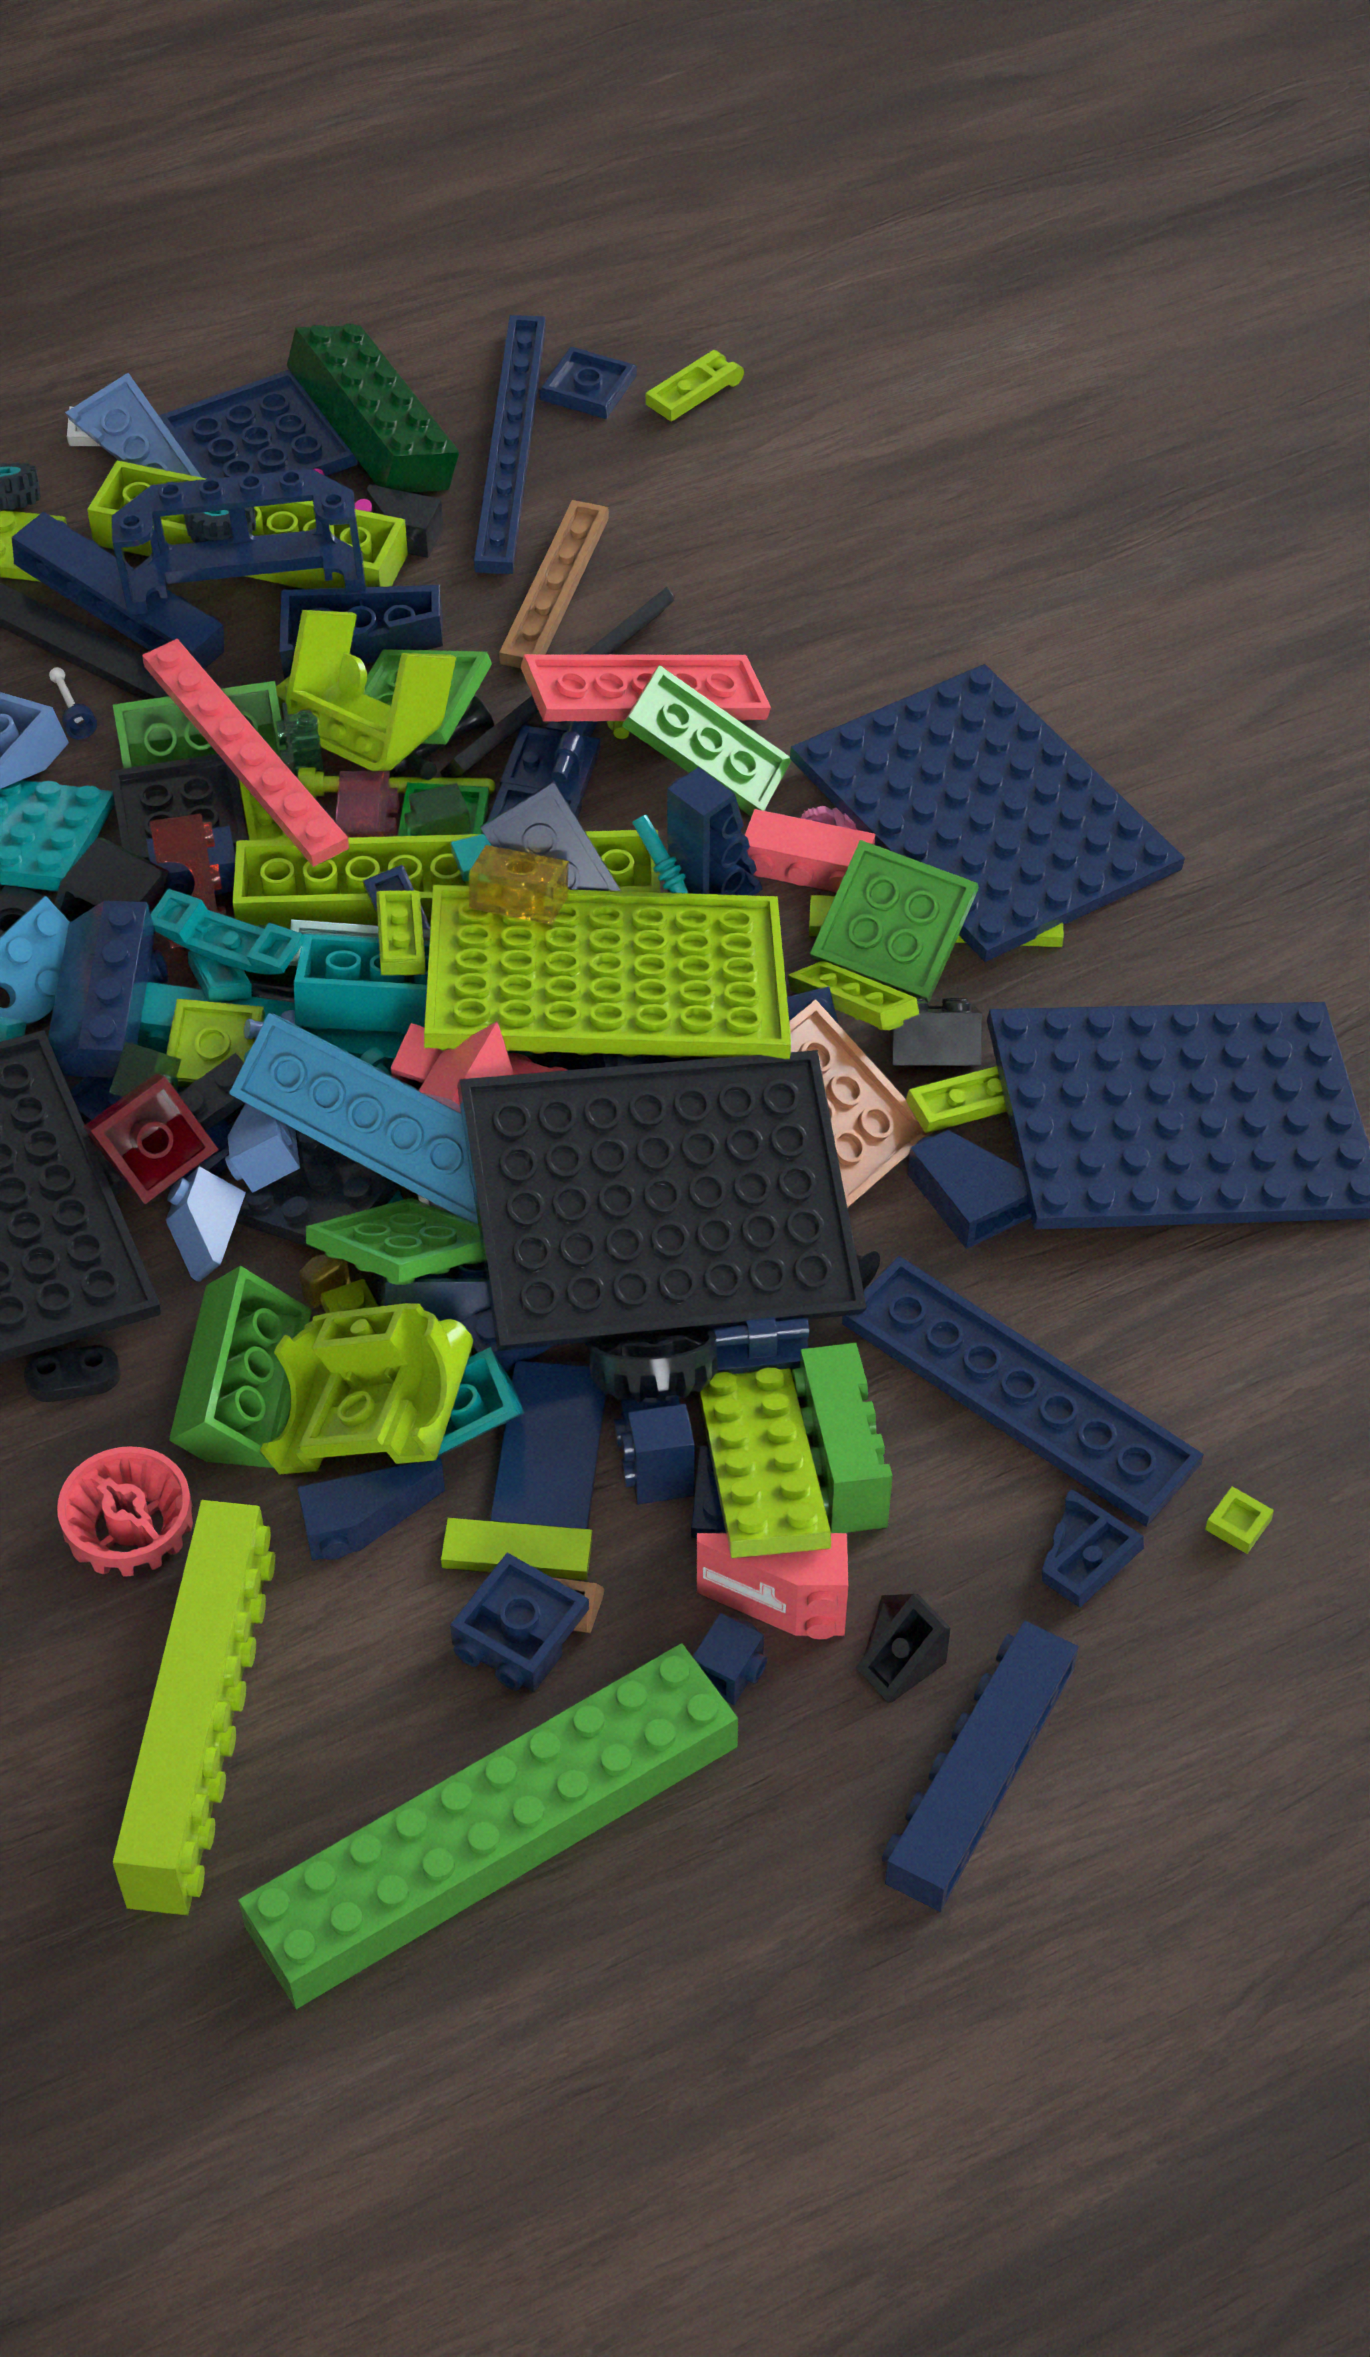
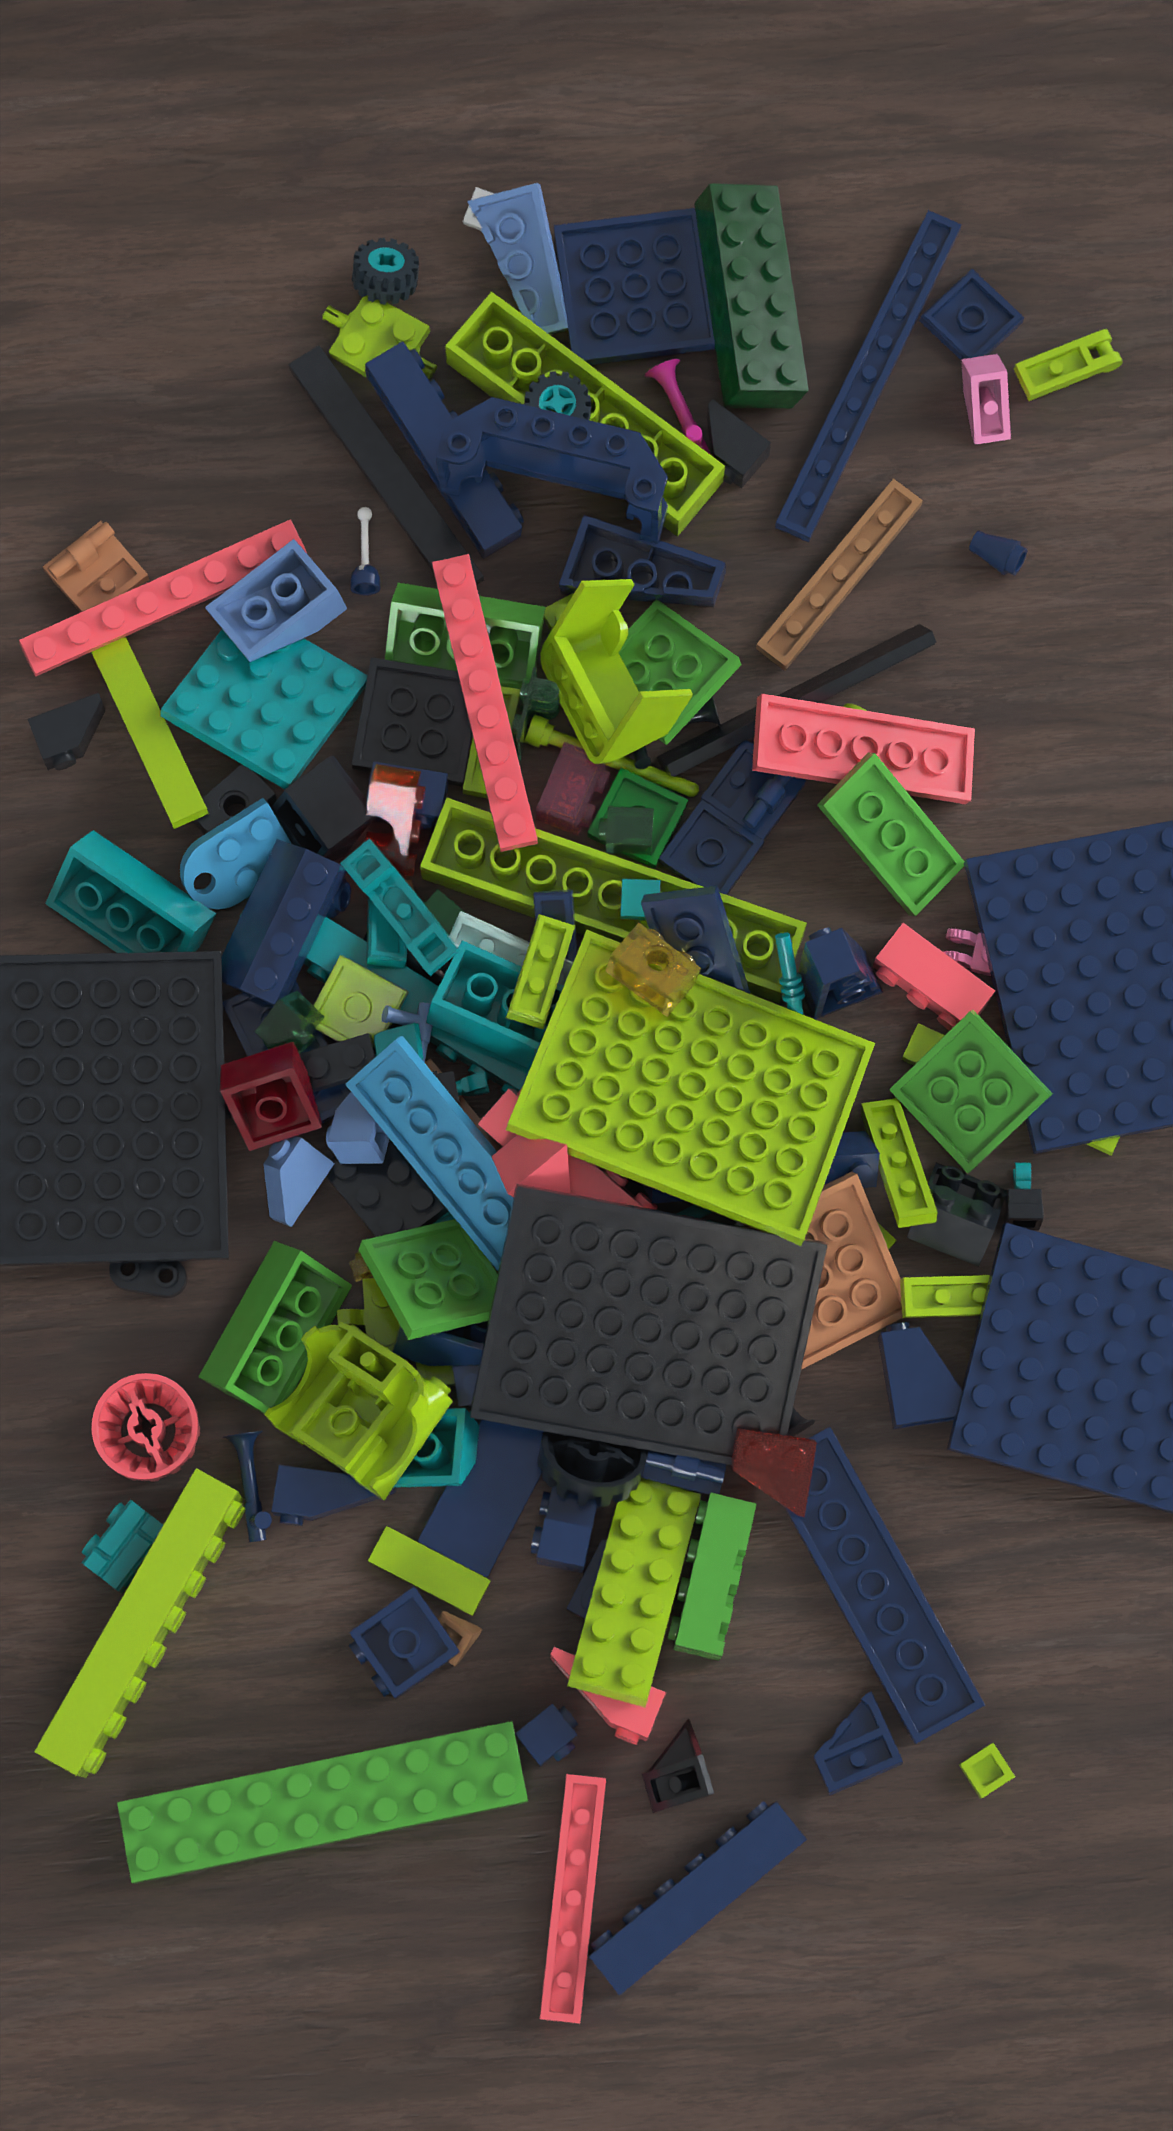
camera: 20 degrees right, 25 degrees up
(137, 1645) = (122, 1546): none -> teal brick
(288, 1556) = (256, 1519): none -> dark blue piece
(631, 423) = (986, 398): none -> bright pink slope
(702, 526) = (1000, 552): none -> dark blue cone
(839, 1823) = (573, 1898): none -> coral plate
(861, 1294) = (776, 1466): none -> clear red wing
(994, 994) = (1022, 1203): none -> black piece

